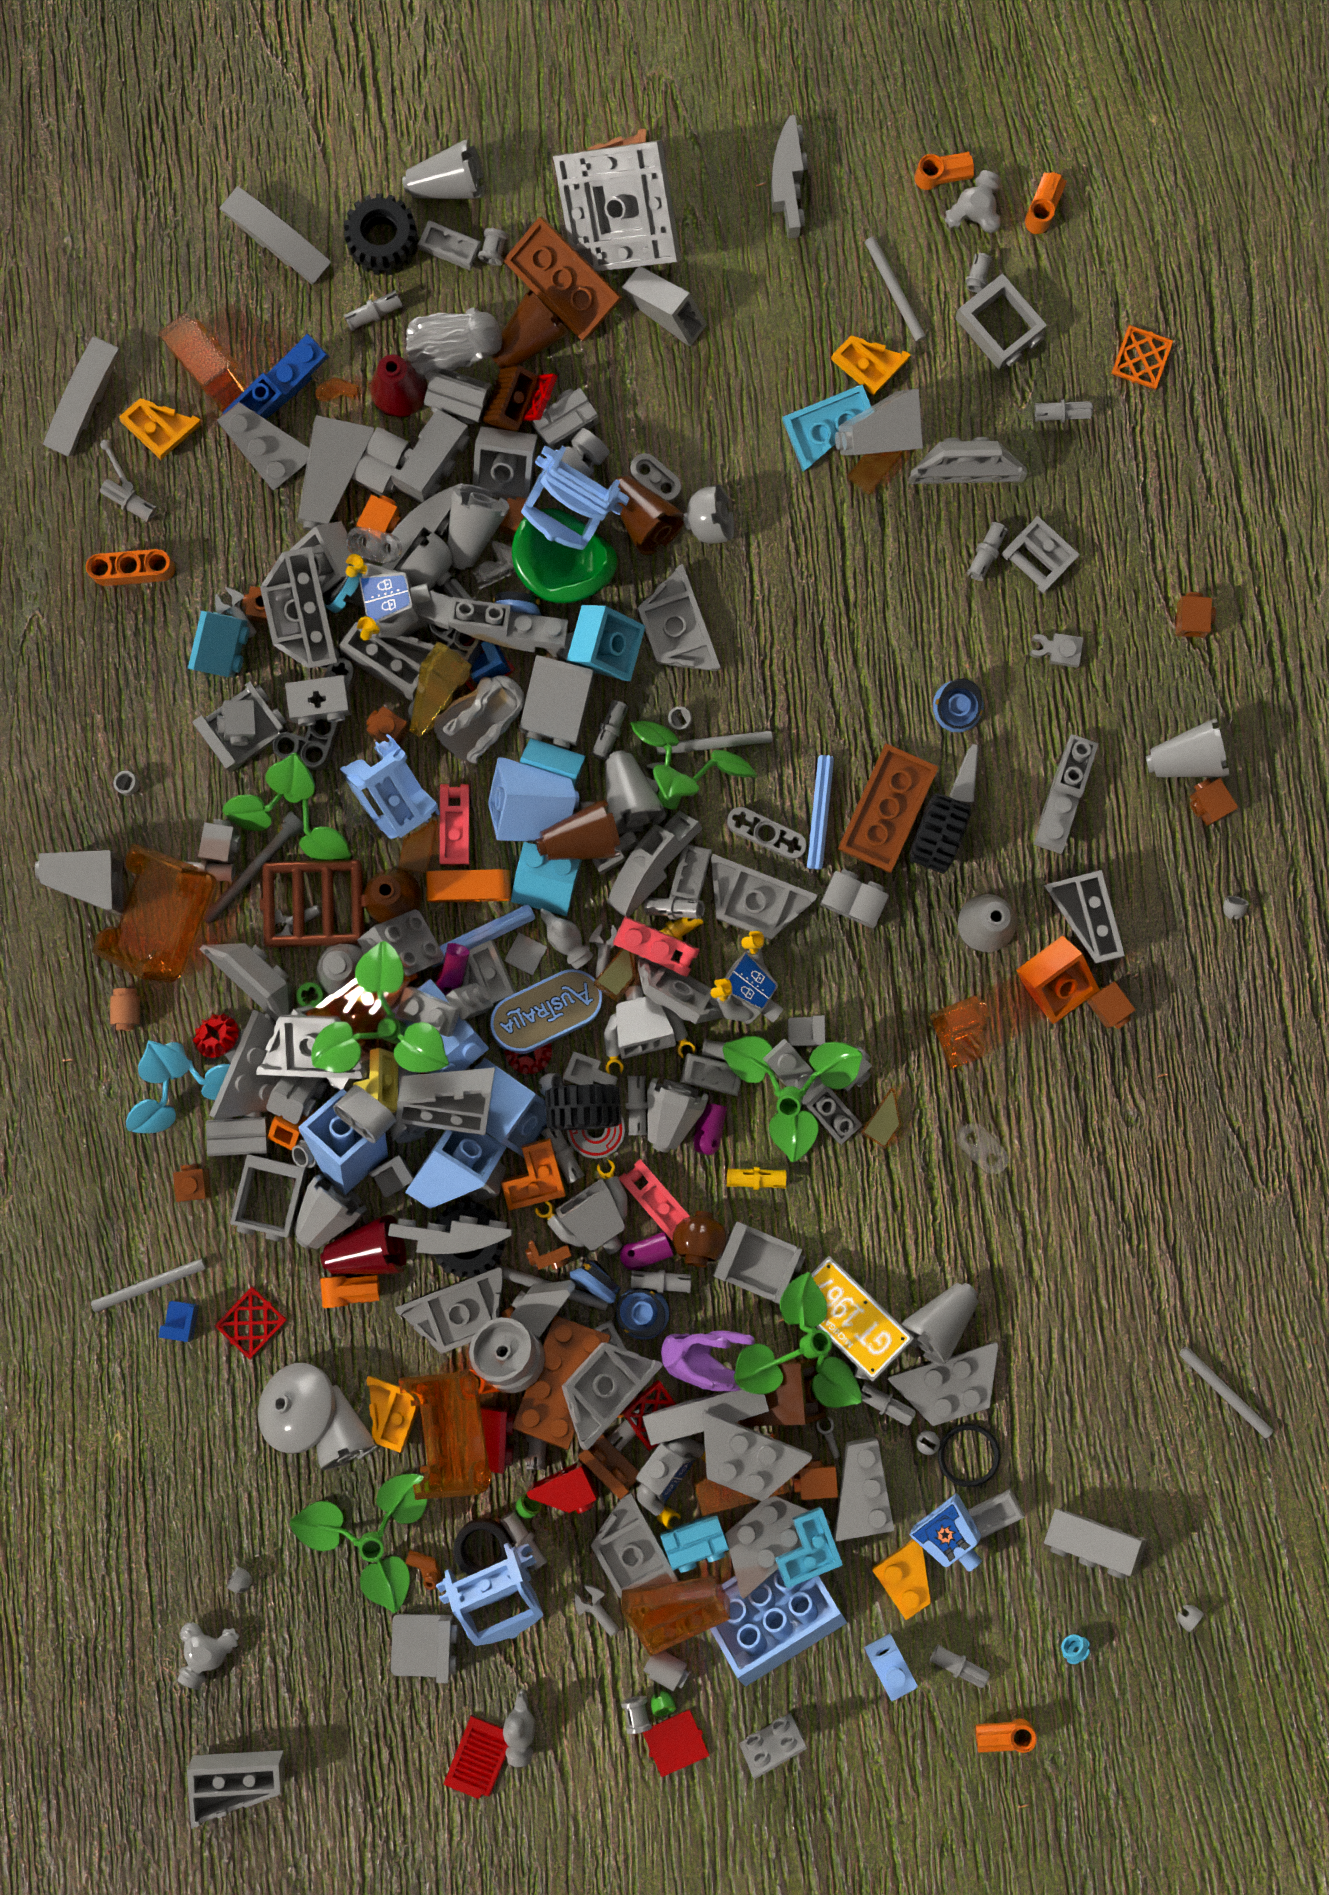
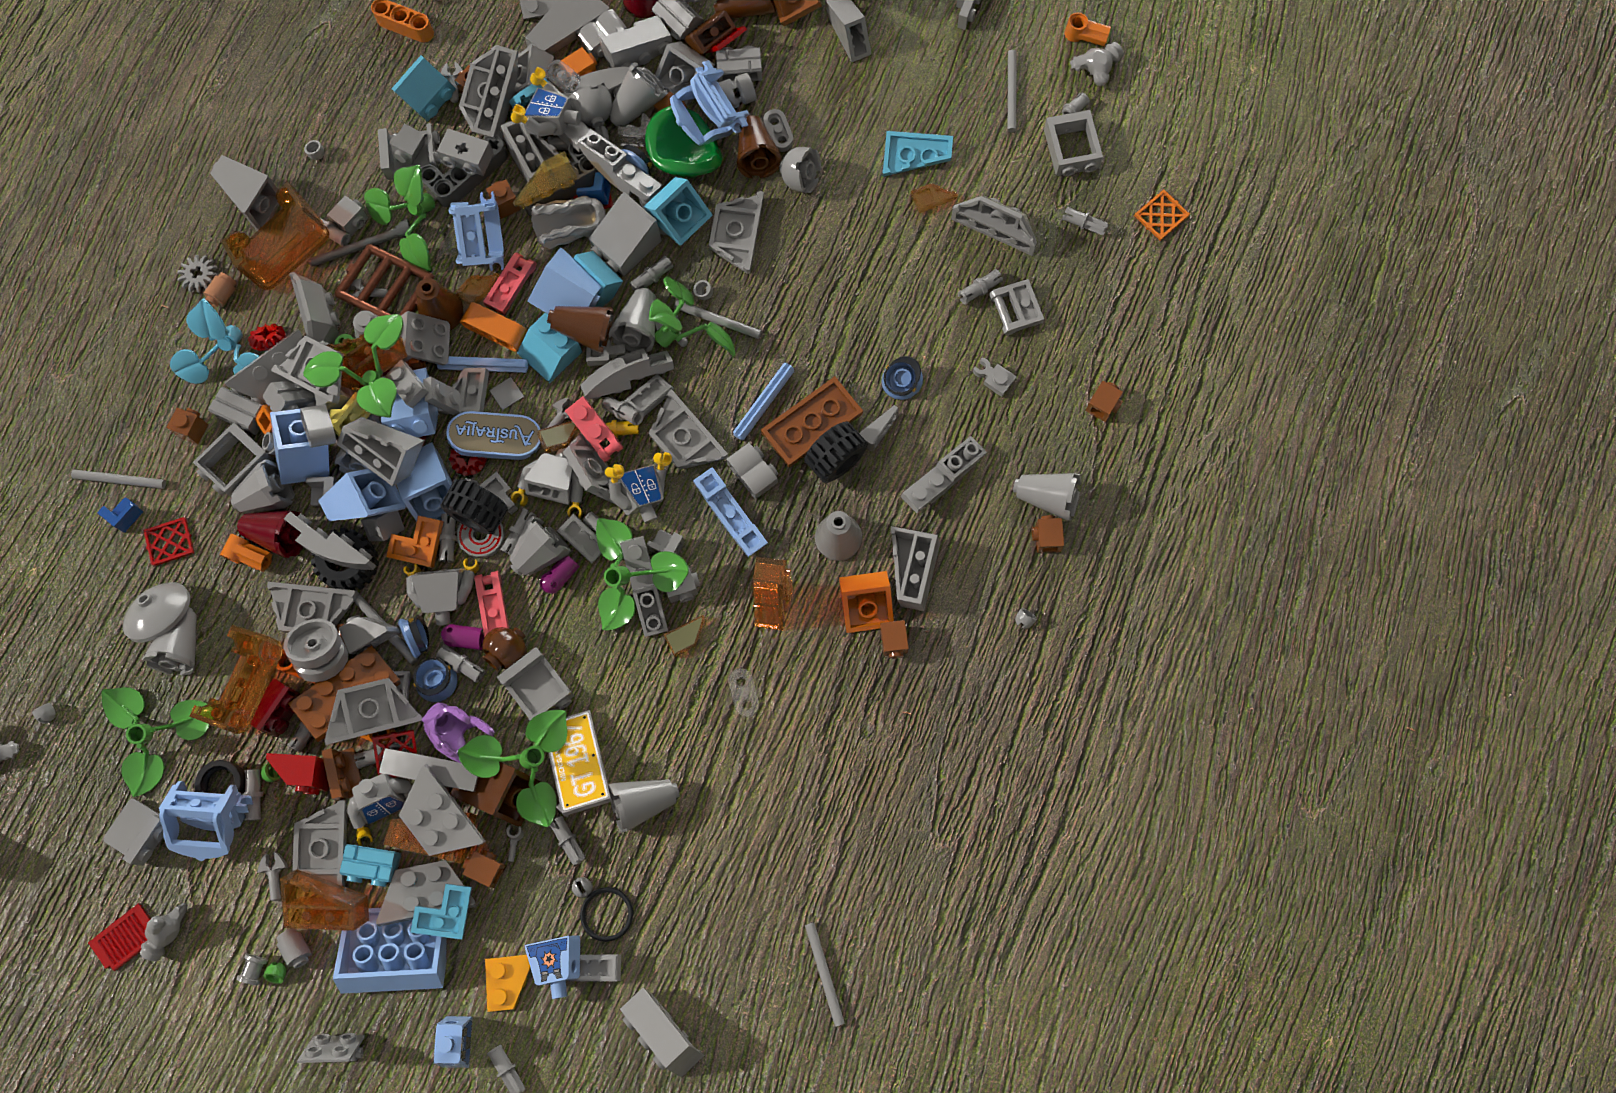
camera: 35 degrees right, 10 degrees down
(92, 1009) = (199, 281): none -> light grey gear
(390, 1414) = (217, 655): light orange wing -> none
(428, 1567) = (176, 772): dark orange arm -> none
(453, 968) = (450, 370): magenta piece -> none
(555, 1258) = (395, 606): dark orange bracket -> none
(566, 939) = (537, 394): light grey animal -> none
(675, 1743) = (268, 1008): red piece -> none
(743, 832) = (703, 387): light grey beam -> none
(756, 1178) = (571, 627): yellow pin -> none
(857, 960) = (729, 512): none -> light blue slope
(863, 1494) = (511, 895): light grey wedge -> none
(868, 362) = (967, 127): light orange wing -> none
(884, 427) = (948, 165): light grey slope -> none
(951, 1389) = (622, 856): light grey wing -> none
(1045, 202) = (1145, 83): orange piece -> none

